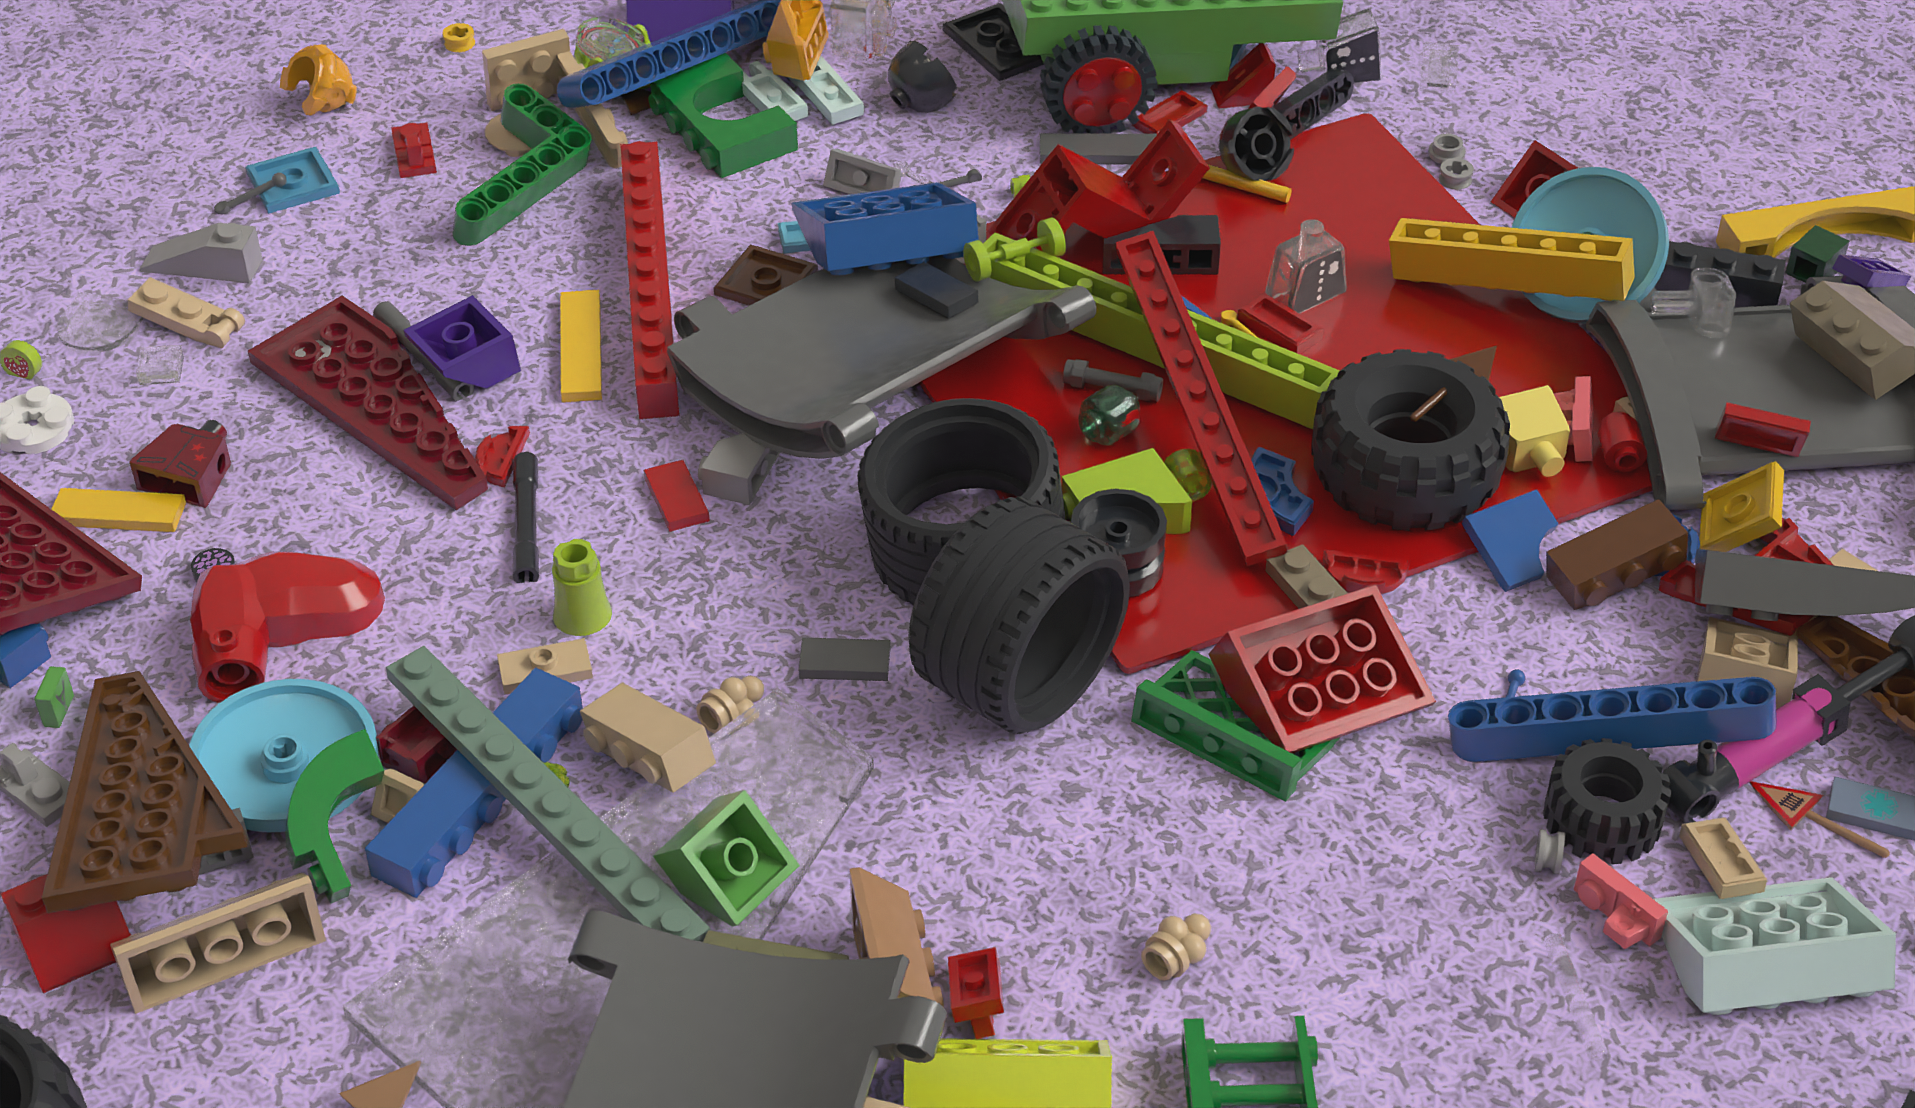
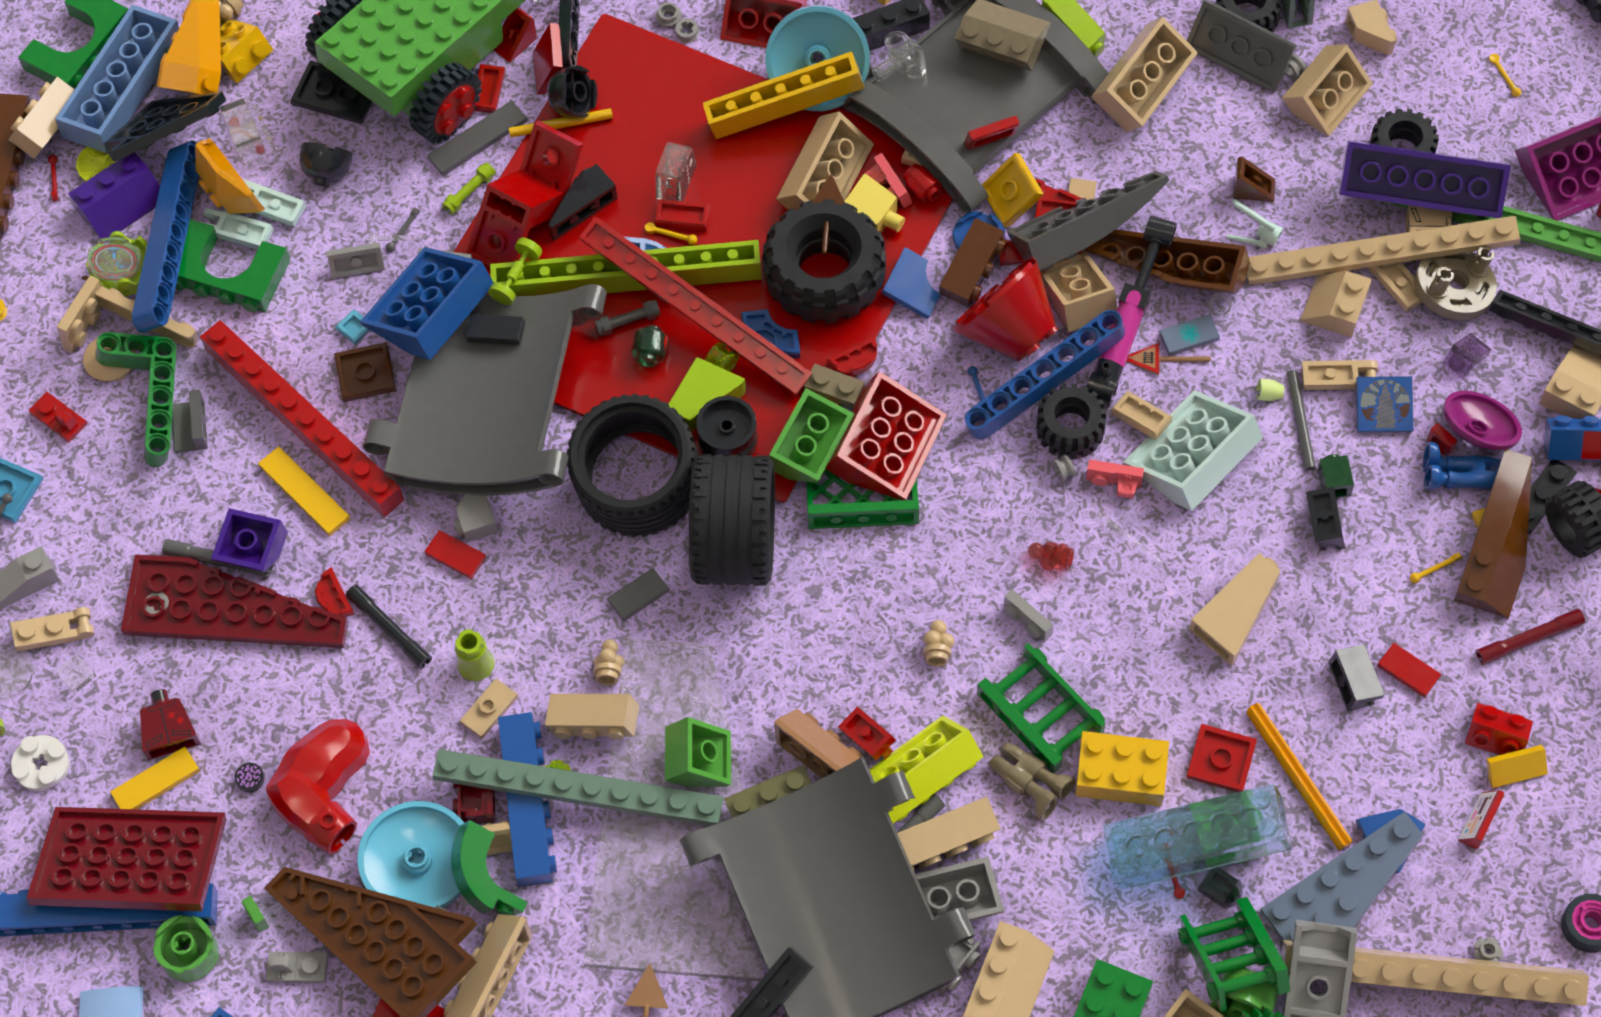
camera: 35 degrees left, 20 degrees up
(537, 223) = (190, 424): none -> dark grey panel
(1209, 598) = (809, 438): none -> bright green slope
(1341, 1005) = (1035, 622): none -> light grey plate
(1441, 944) = (1052, 555): none -> clear red piece
(1530, 352) = (832, 148): none -> tan slope
(1617, 614) = (1011, 315): none -> red cone

